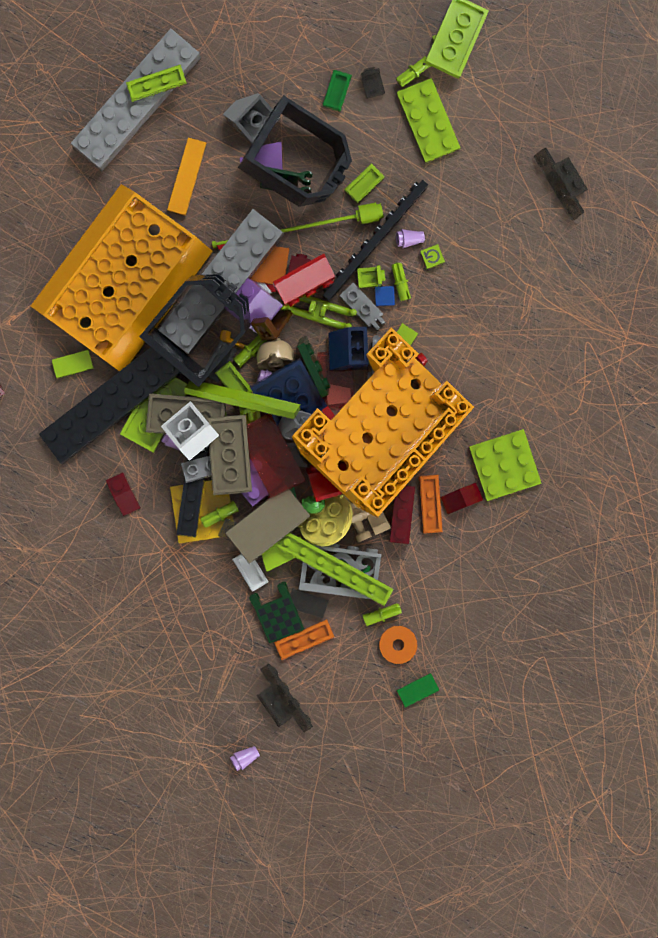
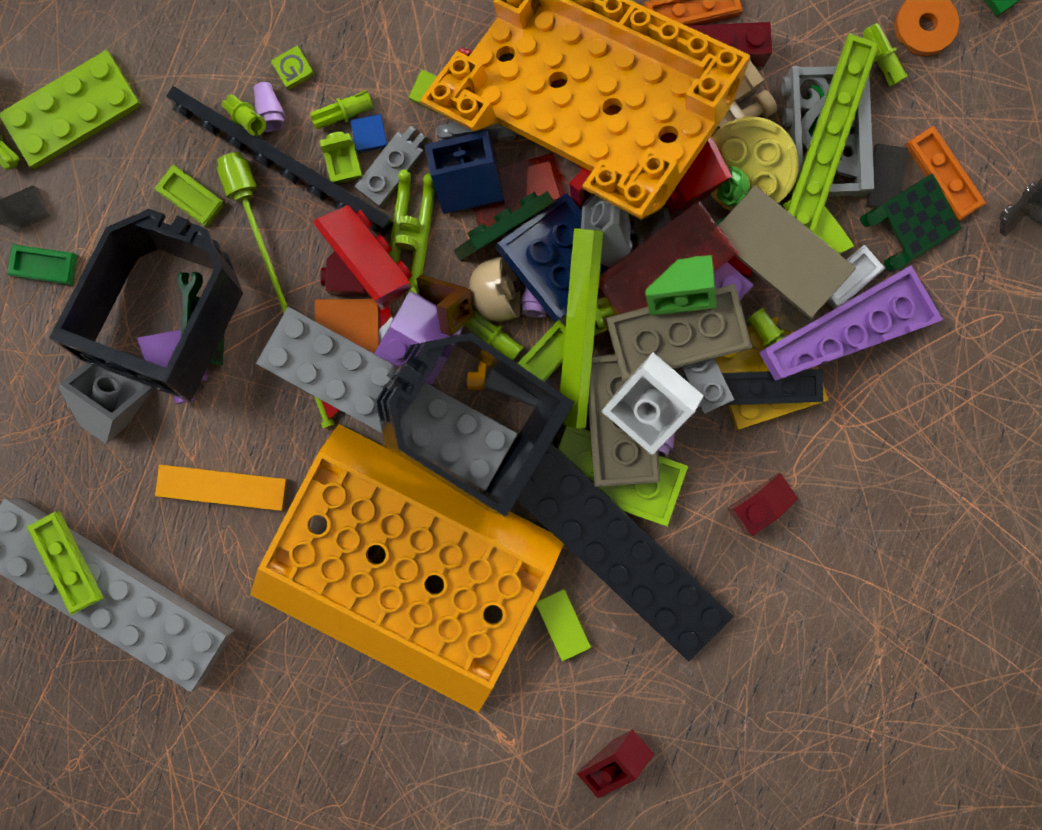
camera: 100 degrees left, 0 degrees up
(222, 575) = (871, 318): none -> medium lavender wing
(253, 460) = (683, 287): none -> bright green slope
(405, 223) = (244, 115): none -> lime axle

